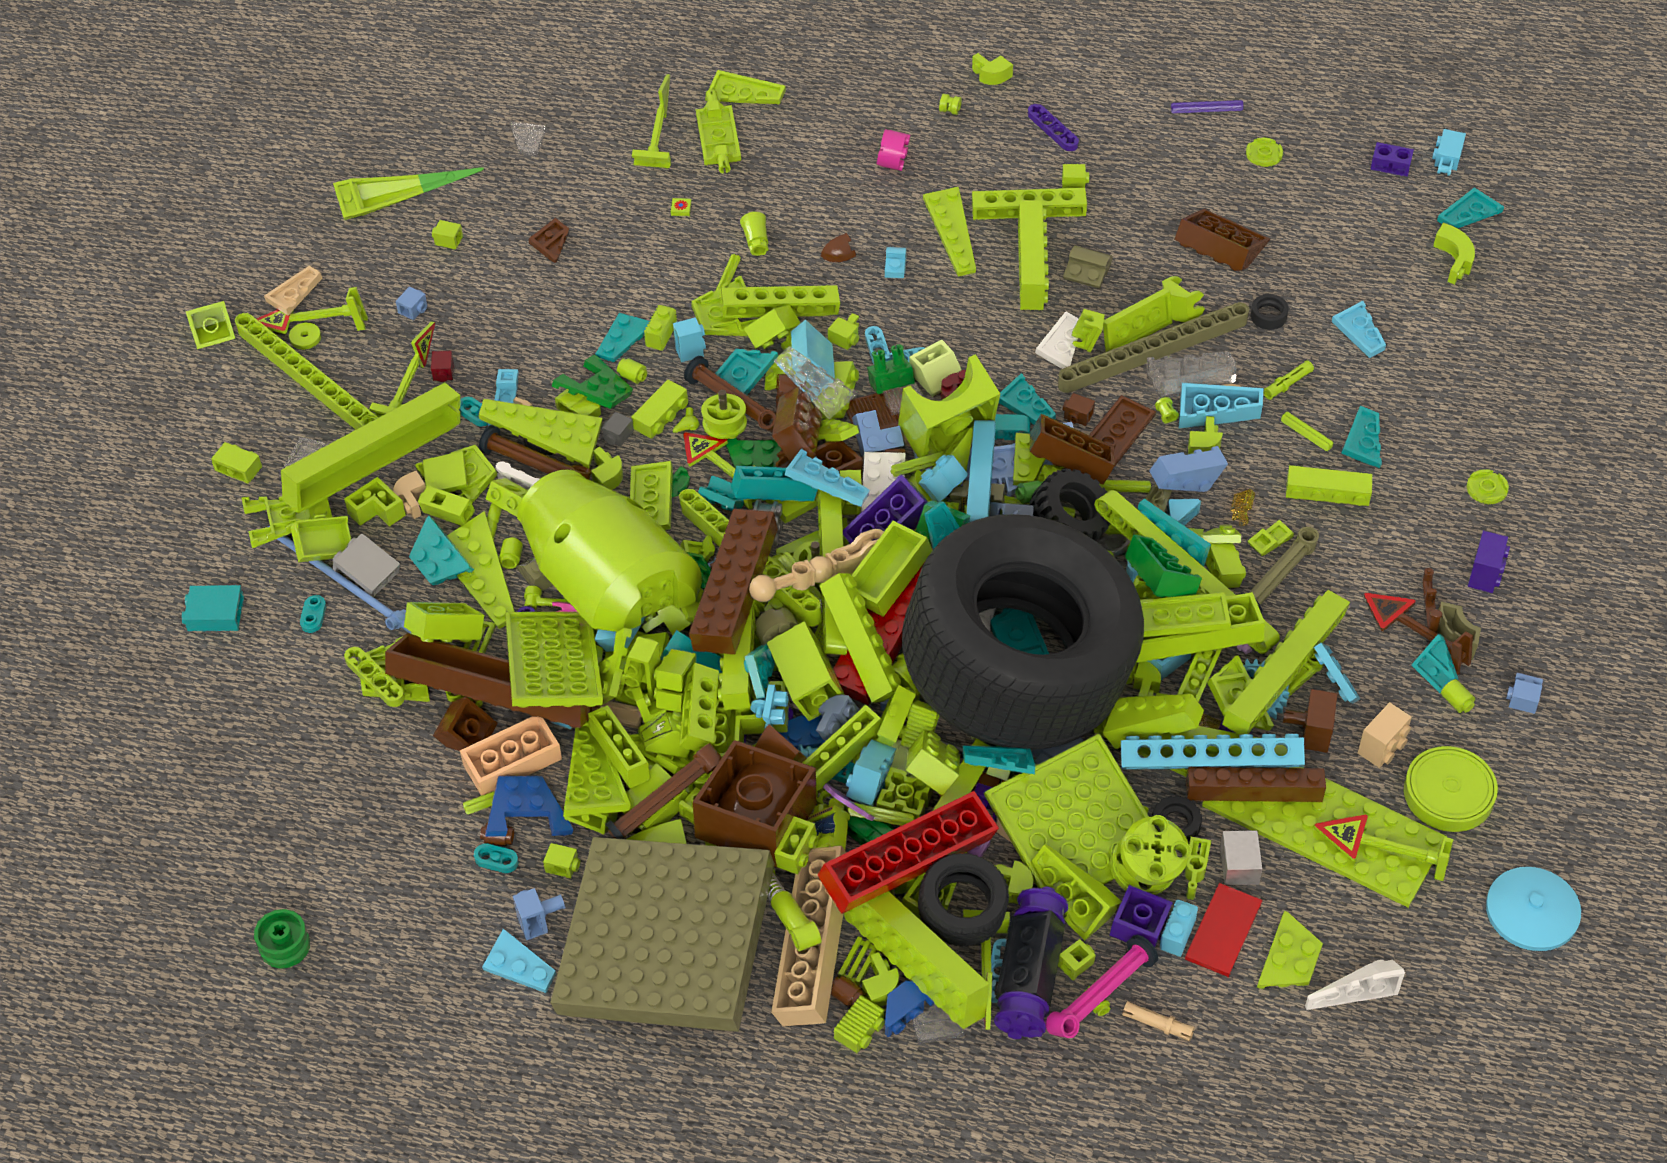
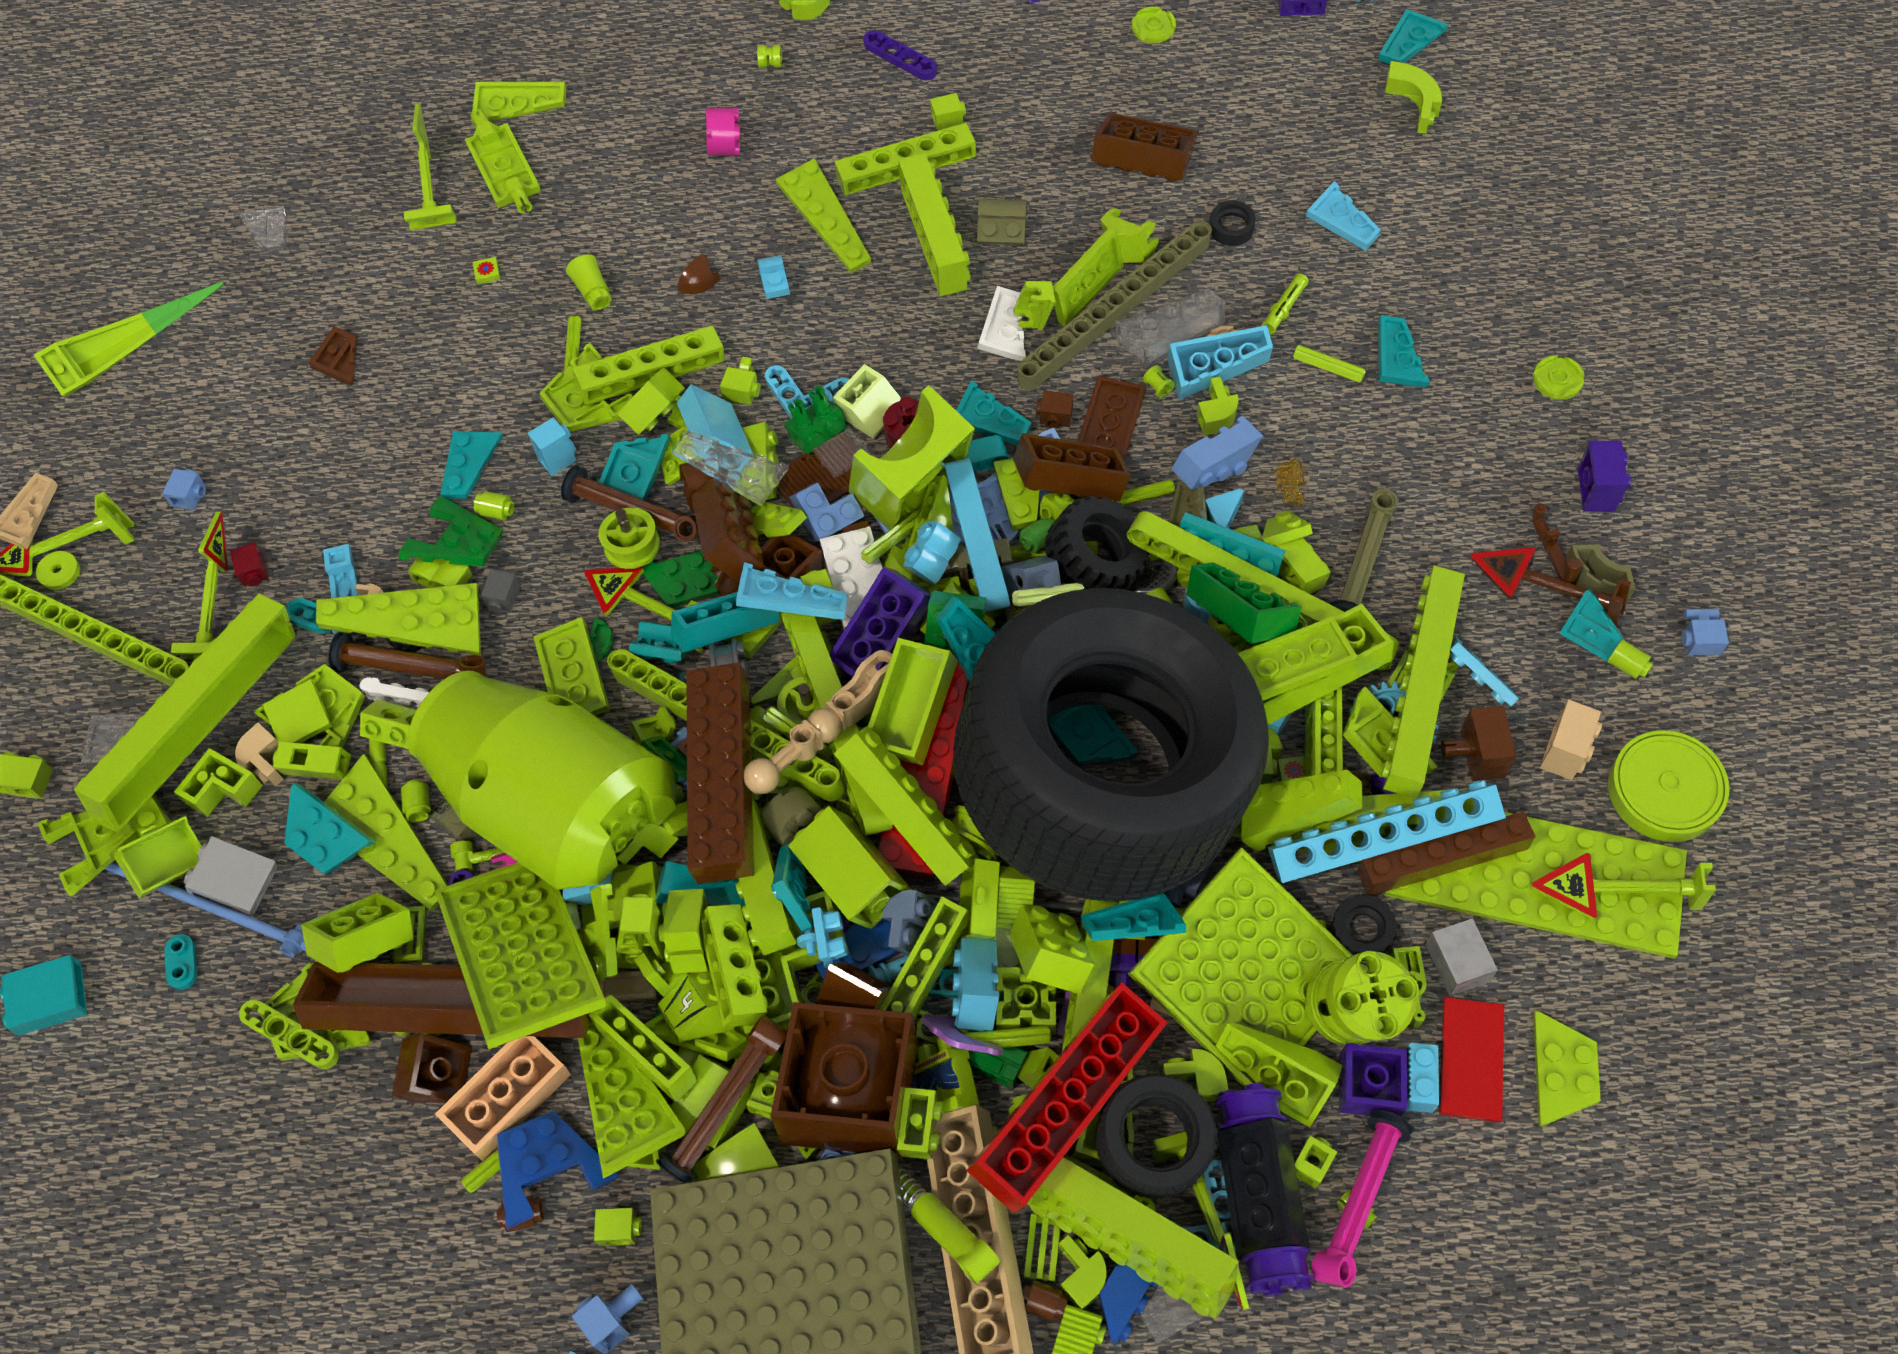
camera: 15 degrees left, 10 degrees up
(447, 234) = (203, 383): lime brick -> none
(498, 856) = (530, 1246): teal plate -> none
(609, 469) = (508, 654): lime brick -> none
(660, 327) = (511, 438): lime brick -> none
(660, 409) = (545, 548): lime brick -> none
(688, 422) = (585, 556): lime animal -> none
(1151, 1018) = (1441, 1215): tan pin -> none
(1270, 539) = (1337, 513): lime slope -> none
(1329, 485) = (1382, 428): lime brick -> none
(1367, 983) = (1674, 1078): white wedge -> none
(1533, 908) = (1819, 915): medium azure dish -> none

